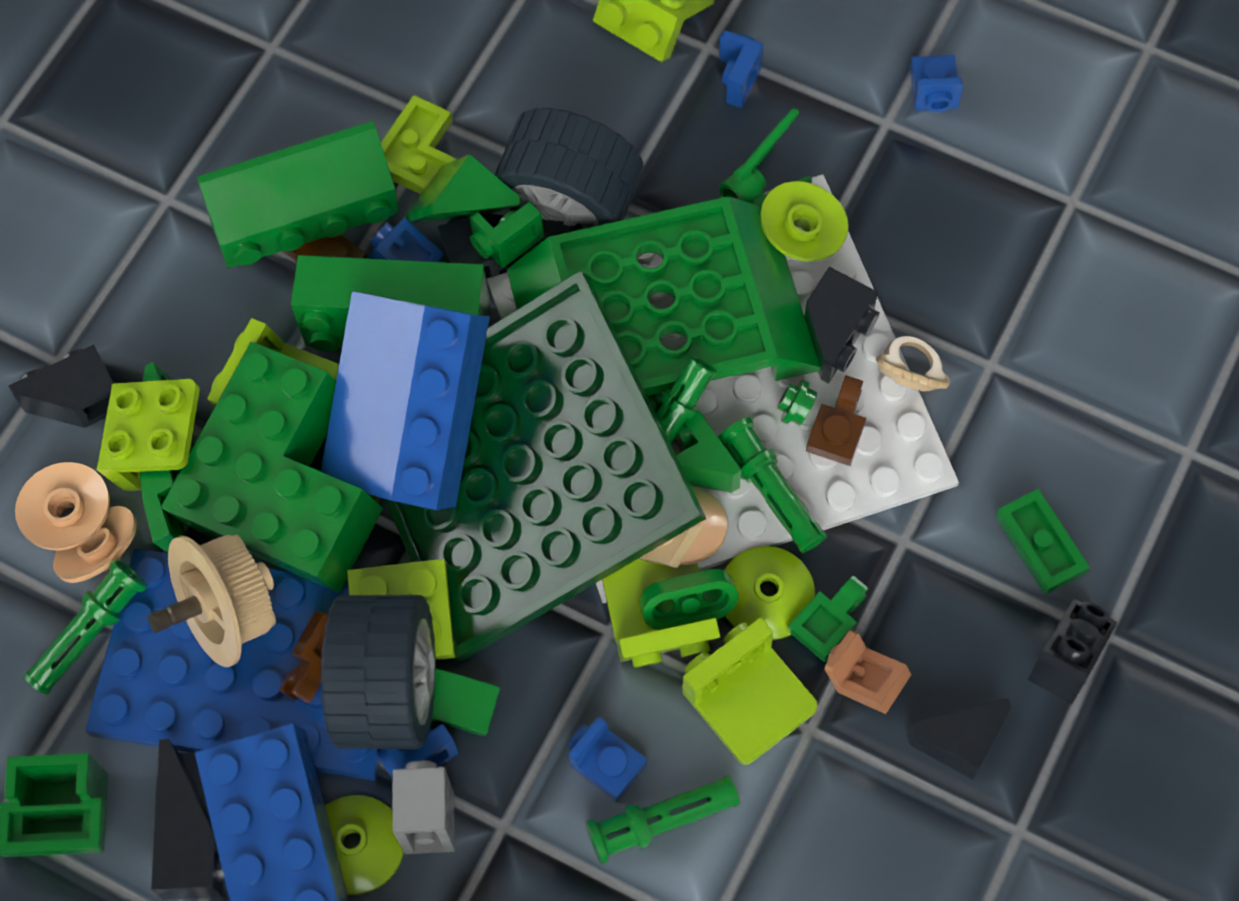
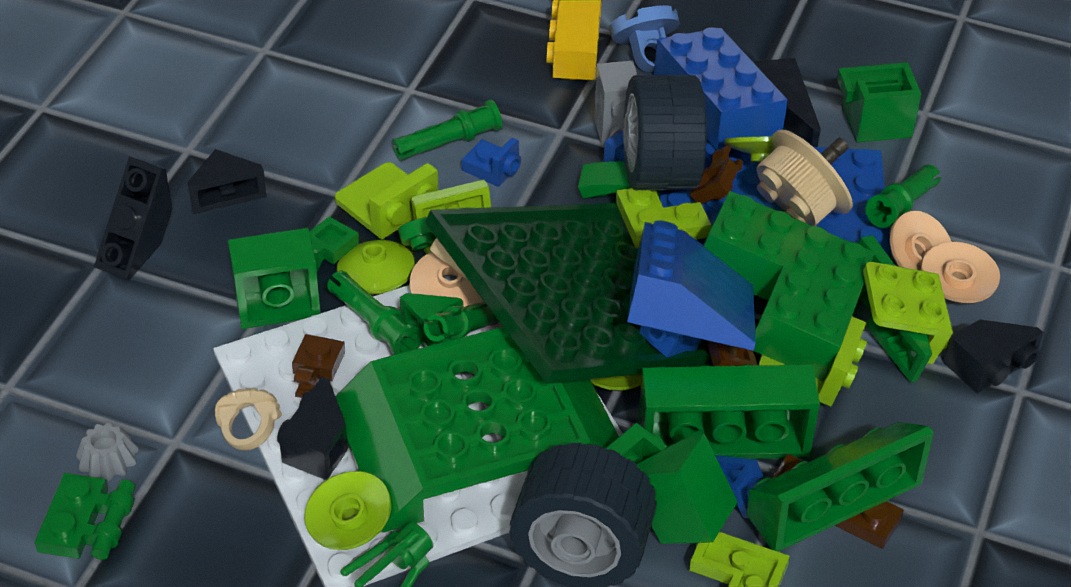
camera: 170 degrees right, 20 degrees down
(234, 710) = (756, 146): none -> lime dish
(796, 402) = (349, 365): green plate -> none
(865, 673) = (294, 210): nougat bracket -> none
(891, 533) = (274, 278): none -> green brick
(1042, 541) = (148, 304): green plate -> none
(1063, 352) = (106, 452): none -> light grey piece
(1087, 278) = (73, 514): none -> green plate

